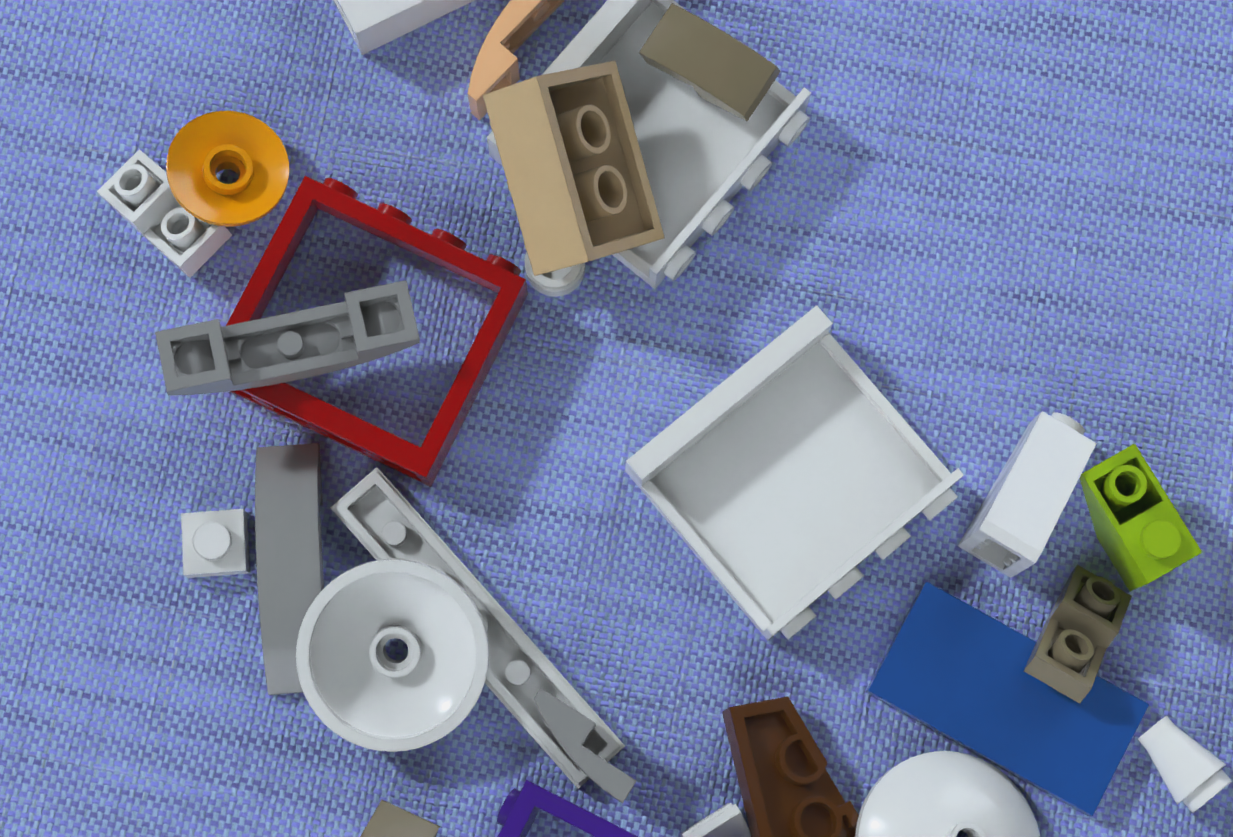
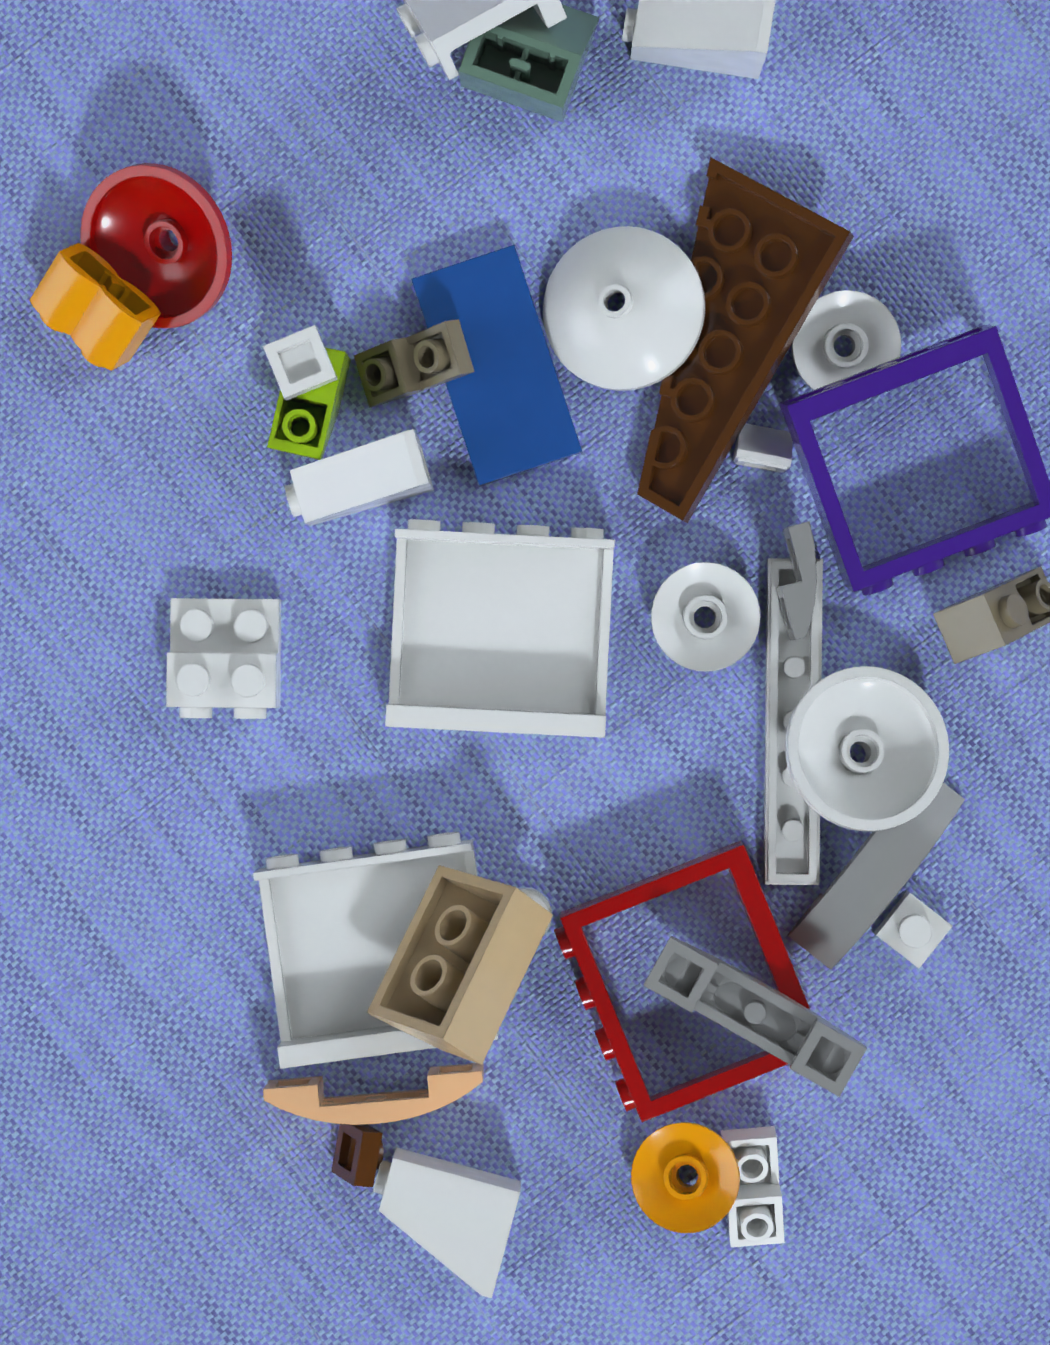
camera: 135 degrees left, 10 degrees up
(640, 611) = (734, 610): none -> white dish
(709, 61) = (299, 957): dark tan slope -> none
(996, 250) = (224, 656): none -> white plate
(1180, 533) = (300, 362): none -> white plate
(1185, 765) = (425, 221): white cone -> none

